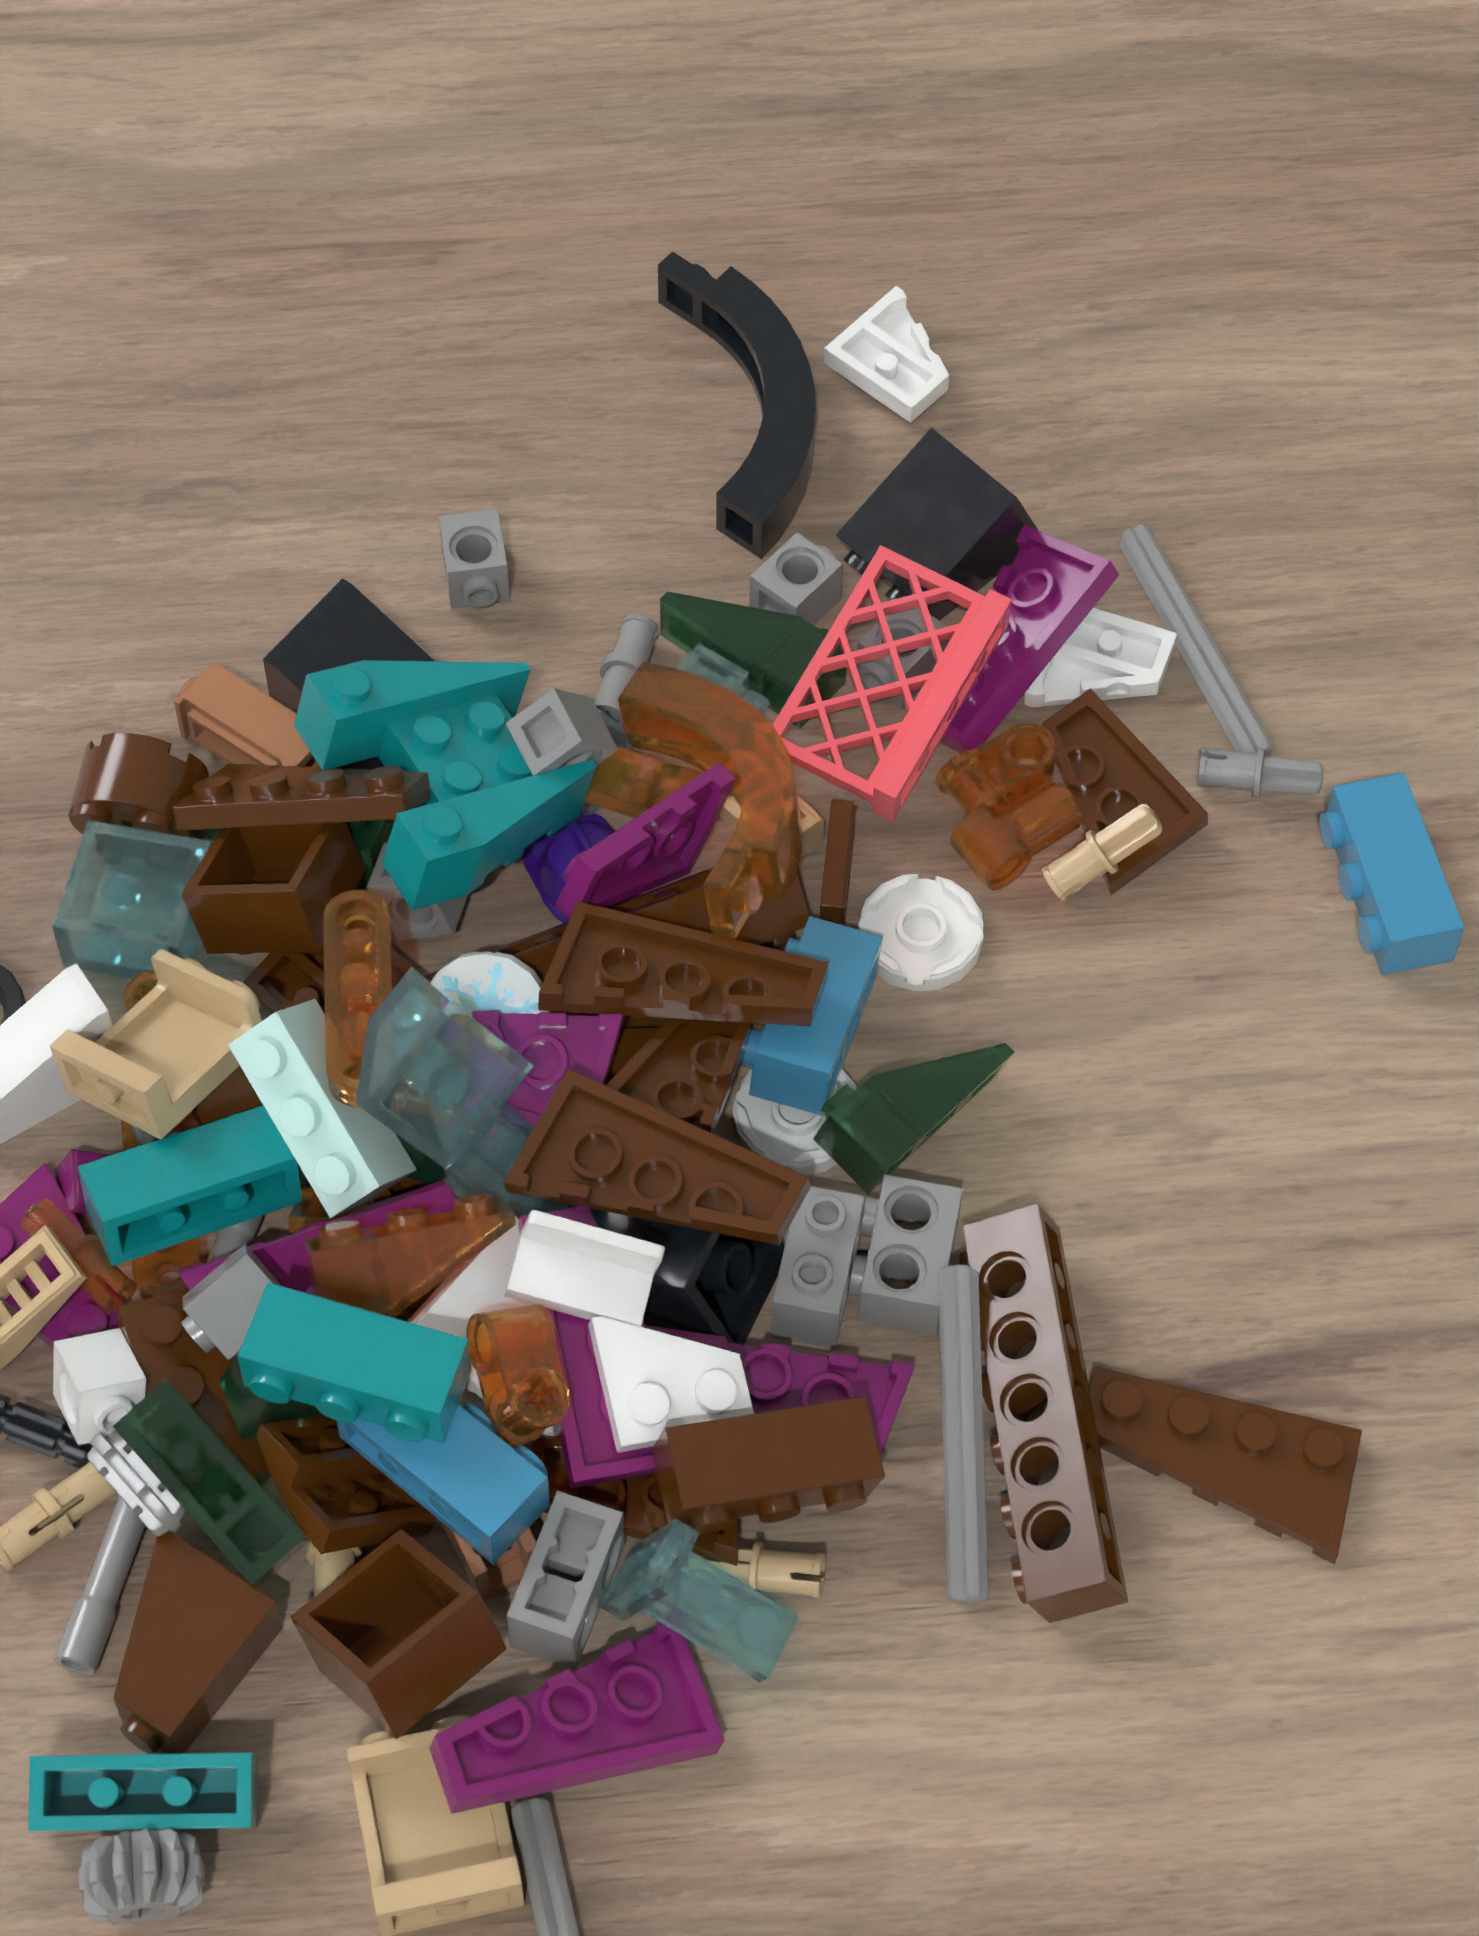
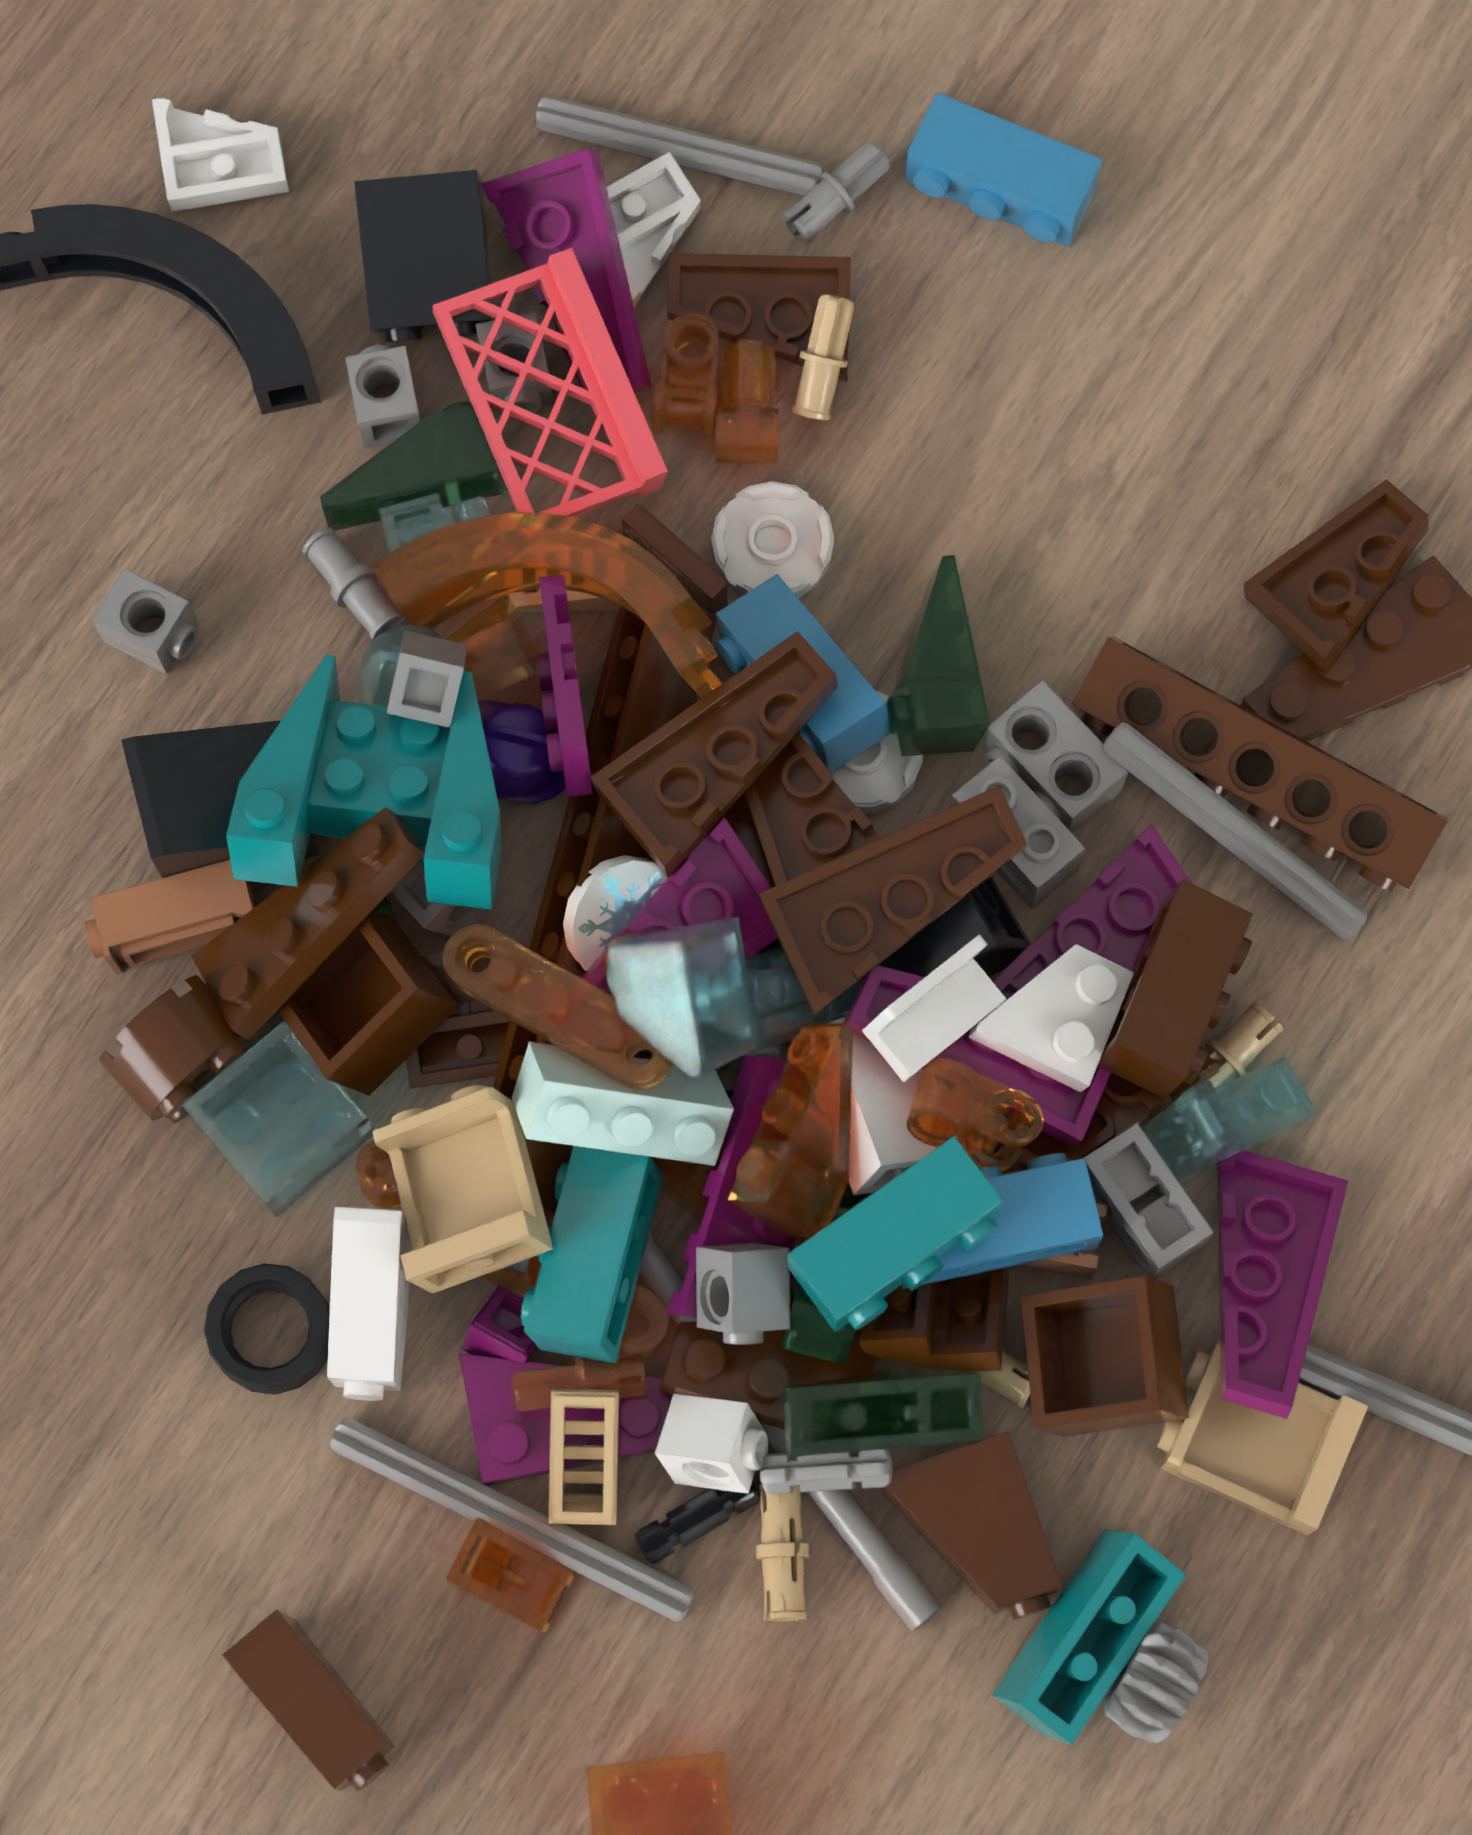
camera: 50 degrees left, 15 degrees up
(1276, 1362) = (1339, 572): none -> reddish brown wing

